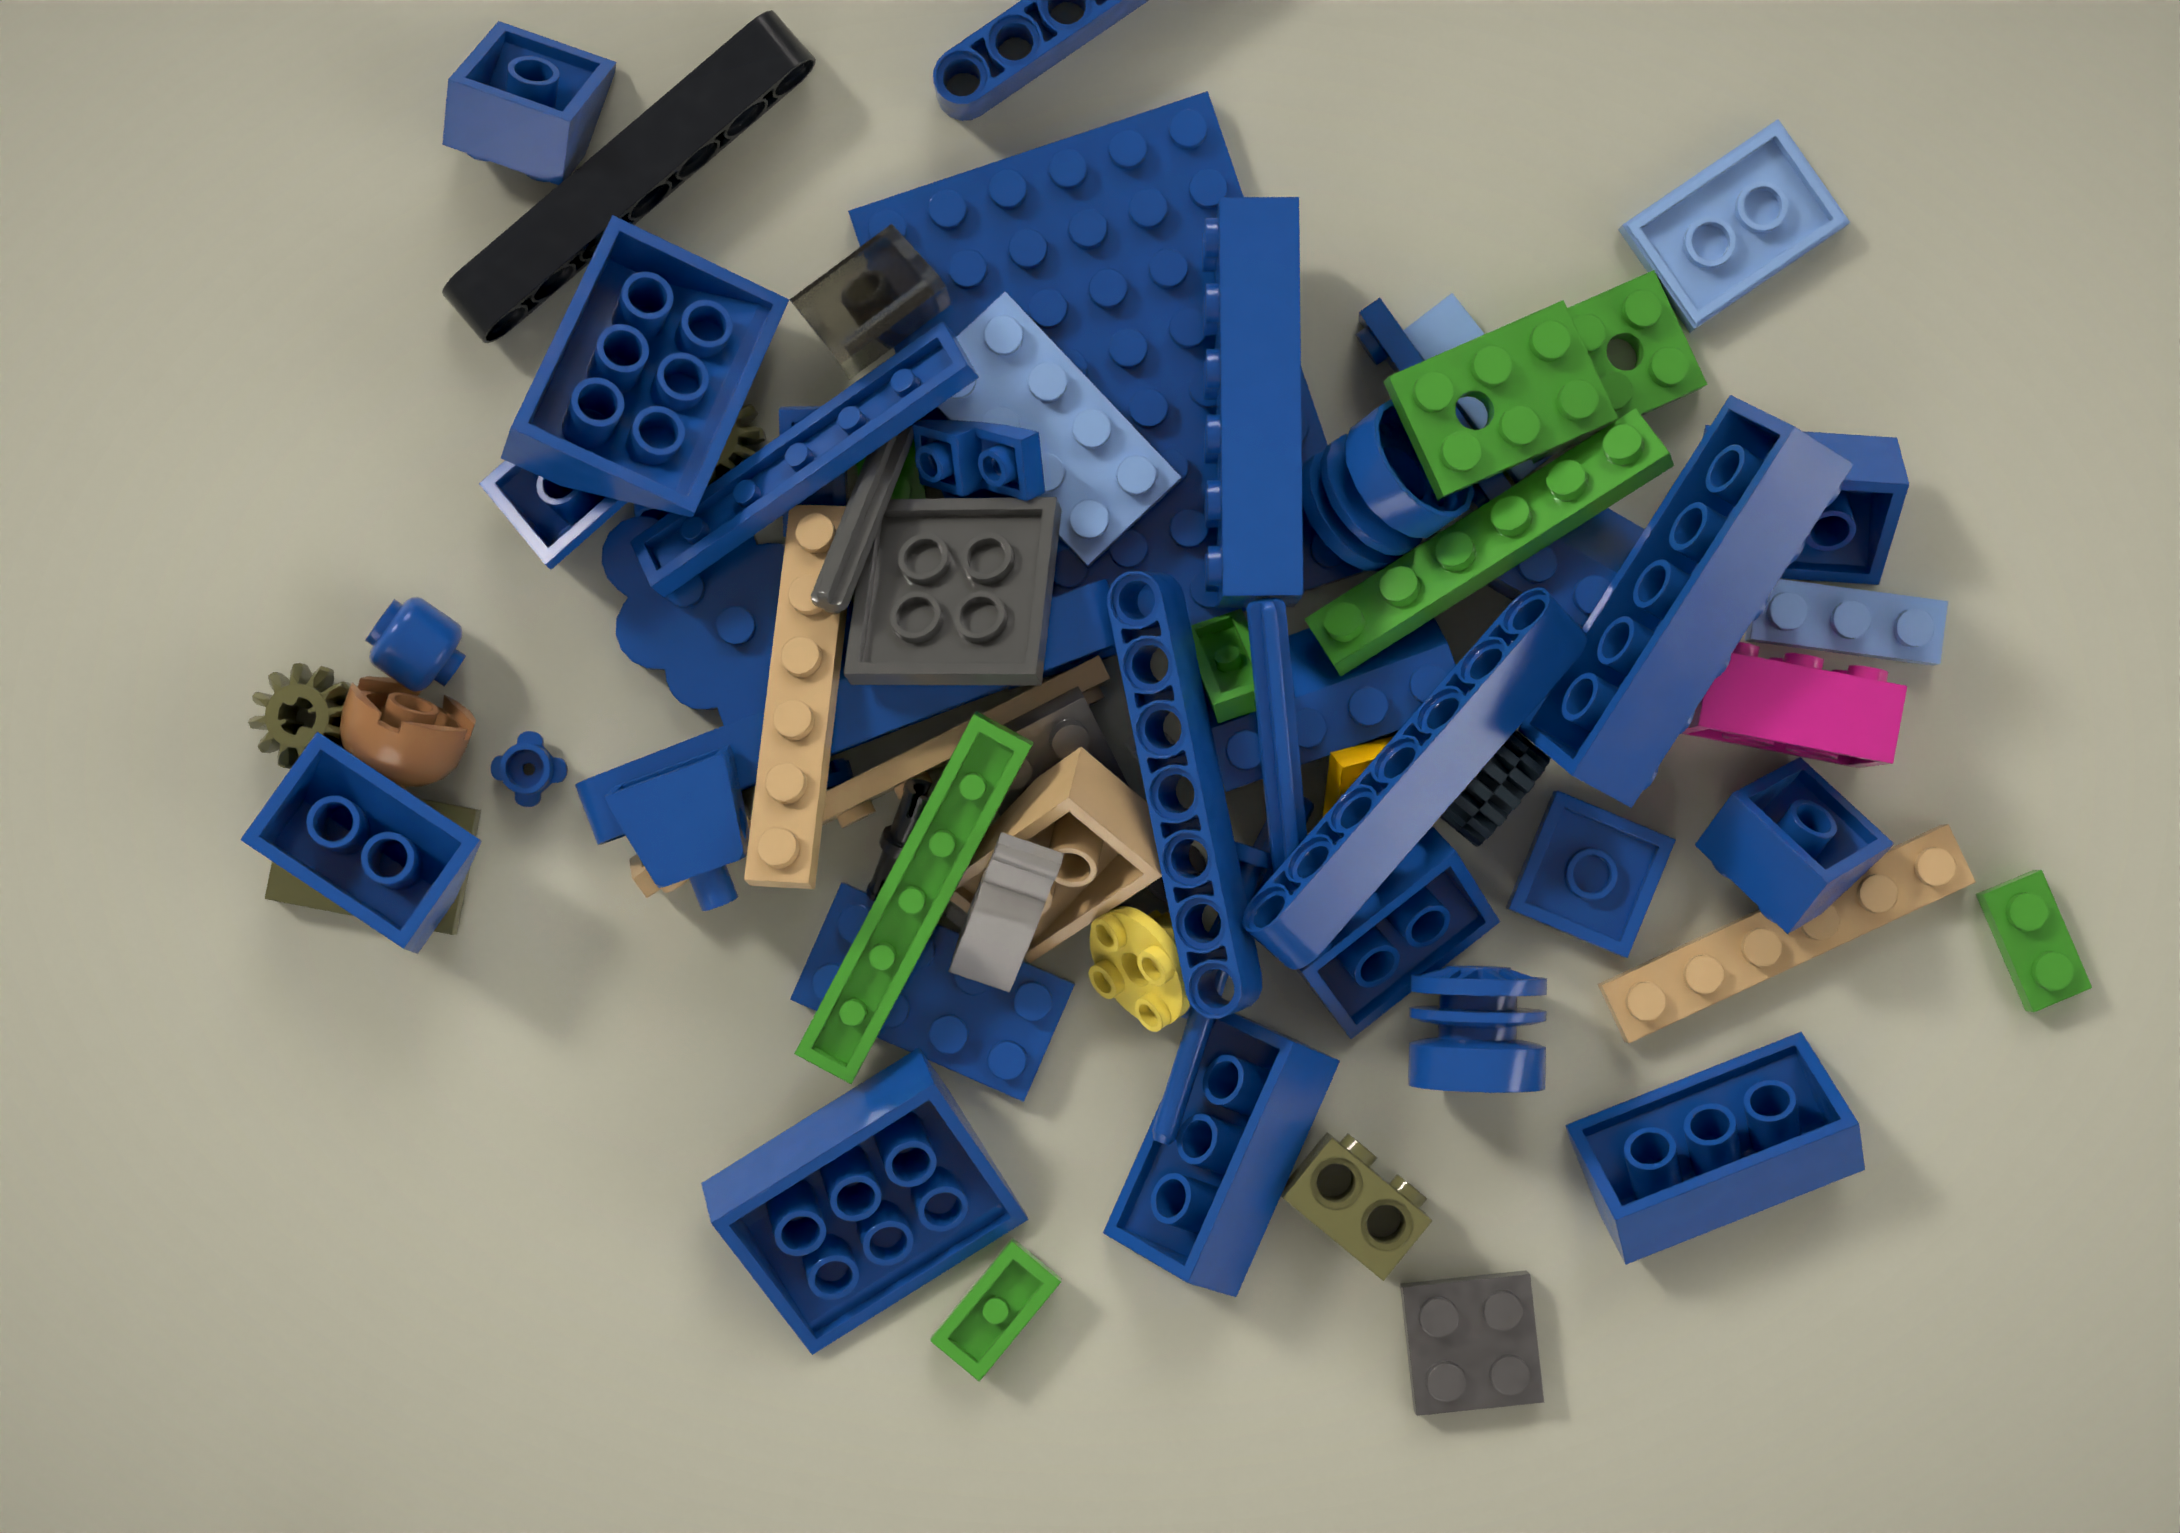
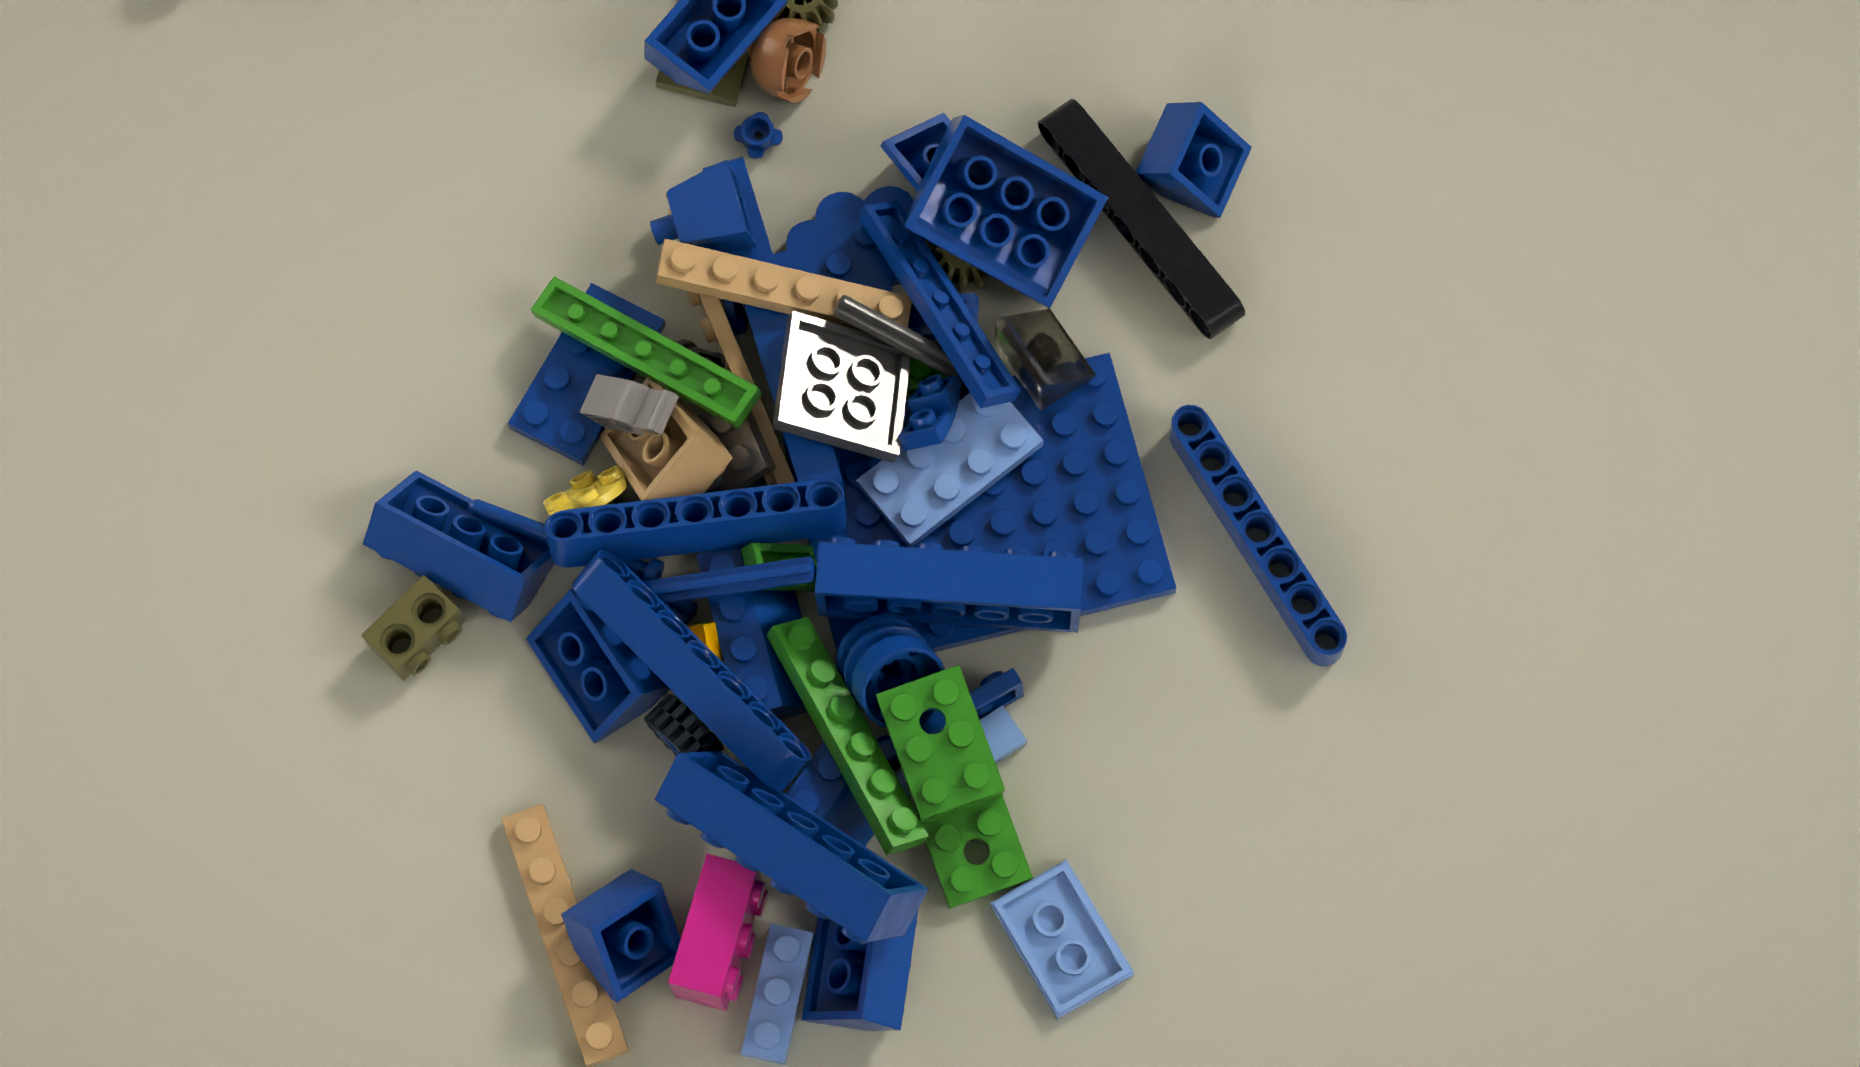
camera: 90 degrees right, 15 degrees down
(416, 644) = (843, 70): blue head -> none
(862, 1202) = (454, 318): blue slope -> none
(995, 1309) = (374, 396): bright green plate -> none
(1472, 1343) = (312, 701): flat silver plate -> none
(1477, 1032) = (521, 708): blue wheel -> none
(1590, 874) = (616, 802): blue plate -> none
(1716, 1147) = (423, 869): blue slope -> none

